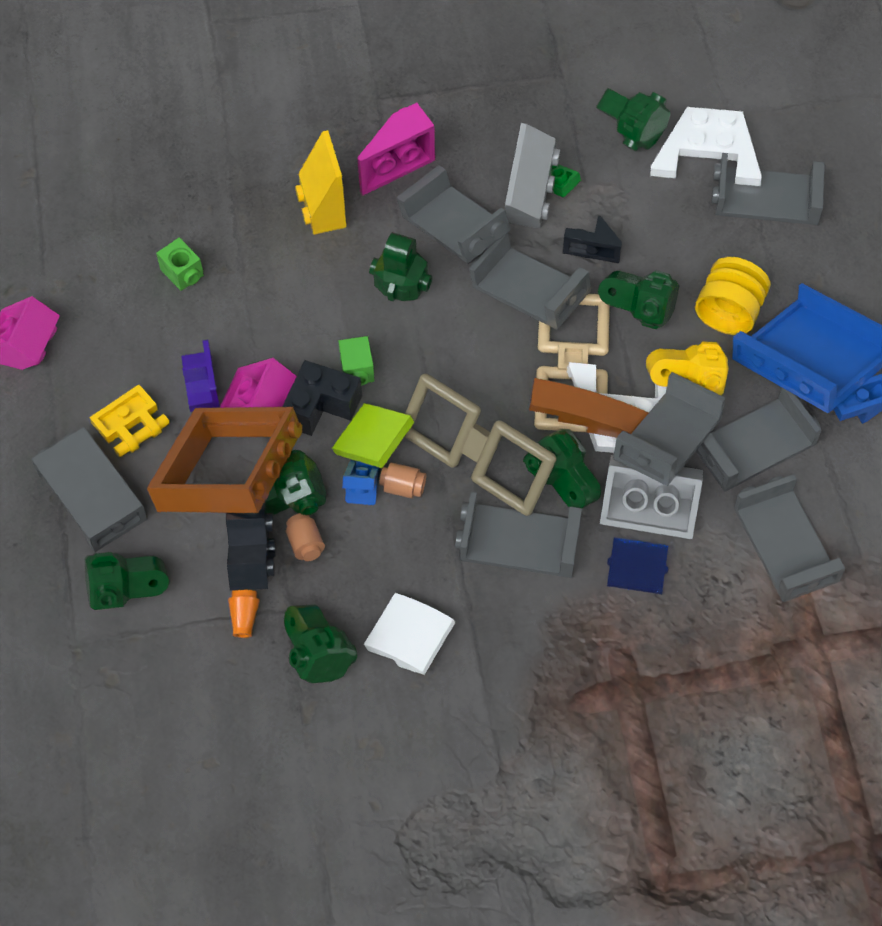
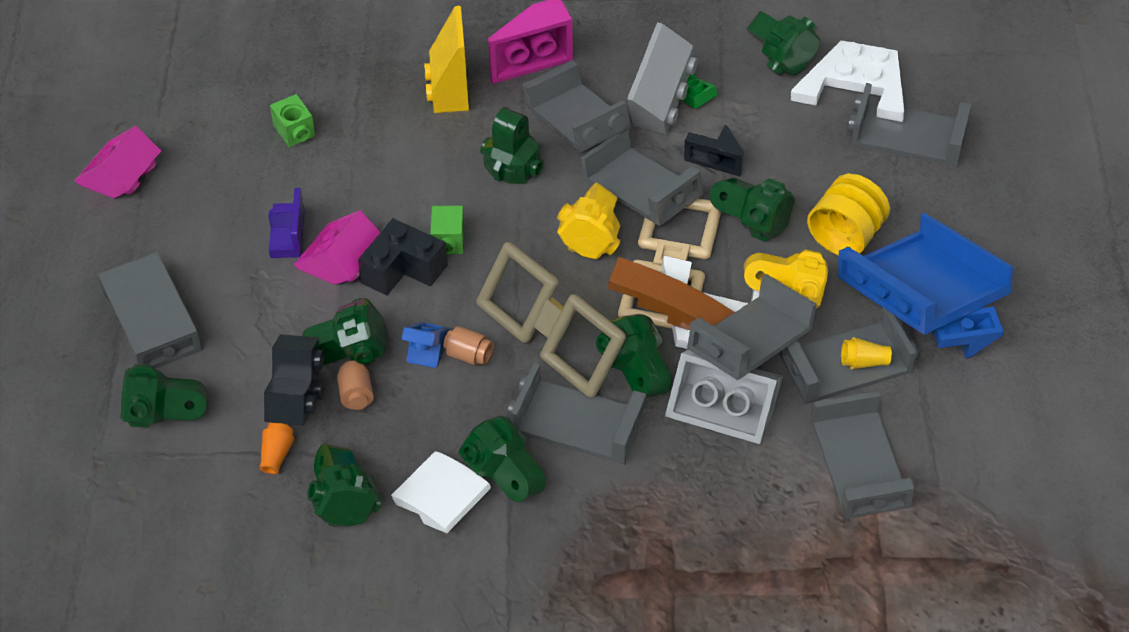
camera: 10 degrees right, 10 degrees down
(123, 415) = (205, 248): yellow plate -> none
(168, 484) = (234, 312): dark orange window -> none
(373, 435) = (447, 299): lime tile -> none
(458, 590) = (498, 452): none -> dark green piece
(493, 338) = (590, 223): none -> yellow piece
(637, 565) = (696, 462): clear blue piece -> none
(770, 436) = (862, 354): none -> yellow cone

